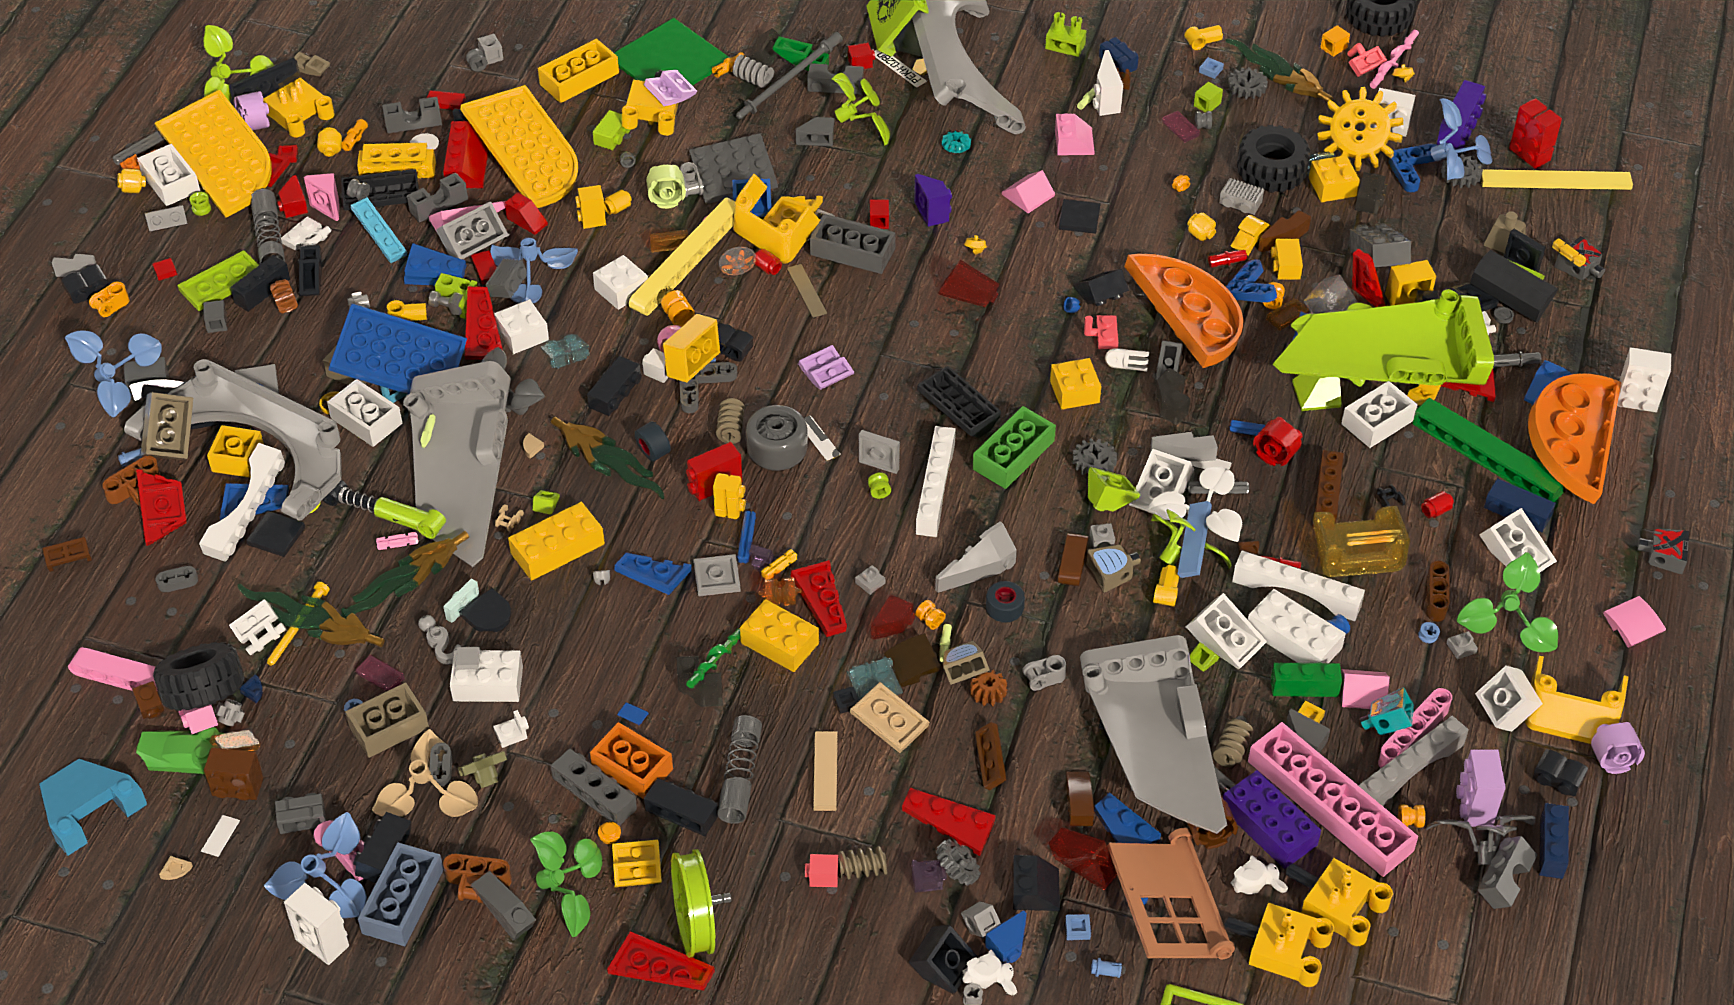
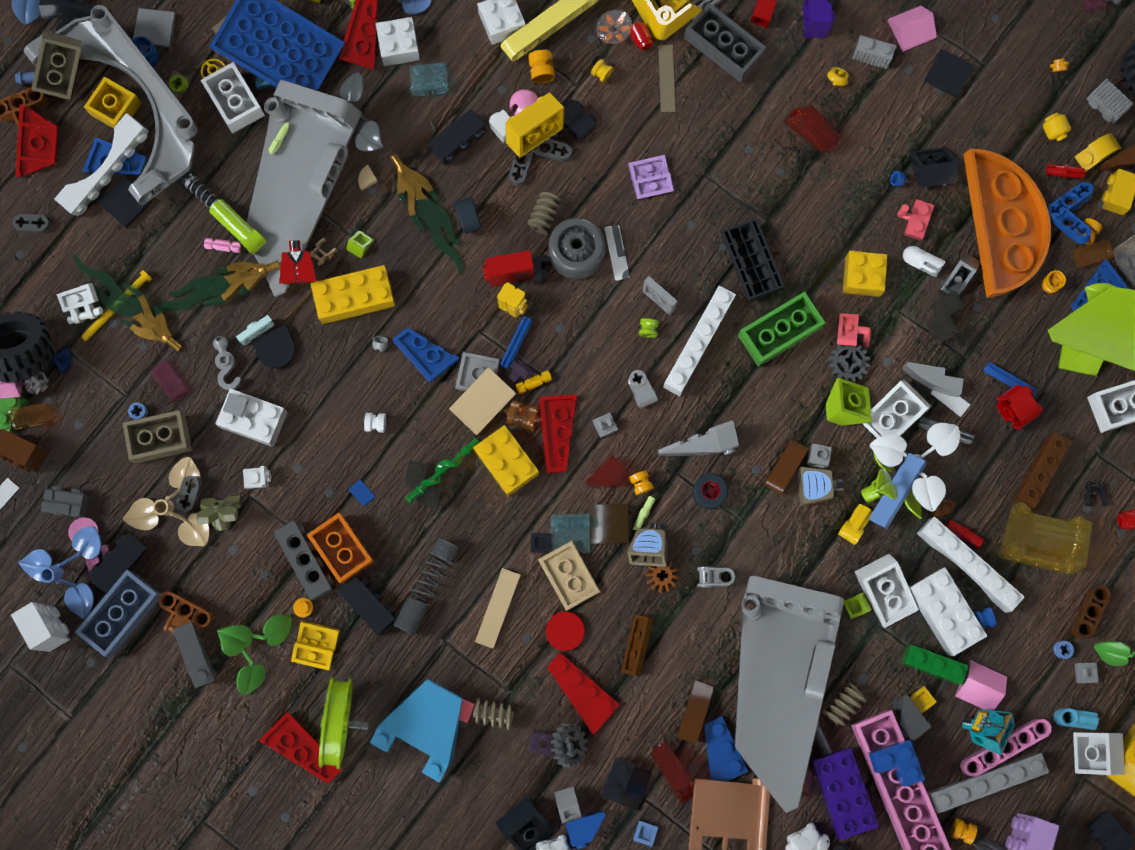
camera: 20 degrees right, 30 degrees up
(488, 525) = (296, 265): none -> red torso
(624, 643) = (372, 422): none -> white wheel
(732, 592) = (482, 401): none -> tan tile
(740, 297) = (602, 70): none -> yellow wheel
(748, 464) = (539, 271): none -> black bracket
(792, 881) = (427, 722): none -> dark azure wedge
(894, 536) = (642, 392): none -> light grey piece
(907, 769) = (565, 631): none -> red tile
(1000, 216) = (874, 51): none -> light grey brick
(1082, 430) = (849, 329): none -> coral plate
(1261, 342) = (1056, 278): none -> light orange wheel
(1310, 753) = (901, 758): none -> blue brick
(1467, 683) = (1077, 718): none -> medium azure piece

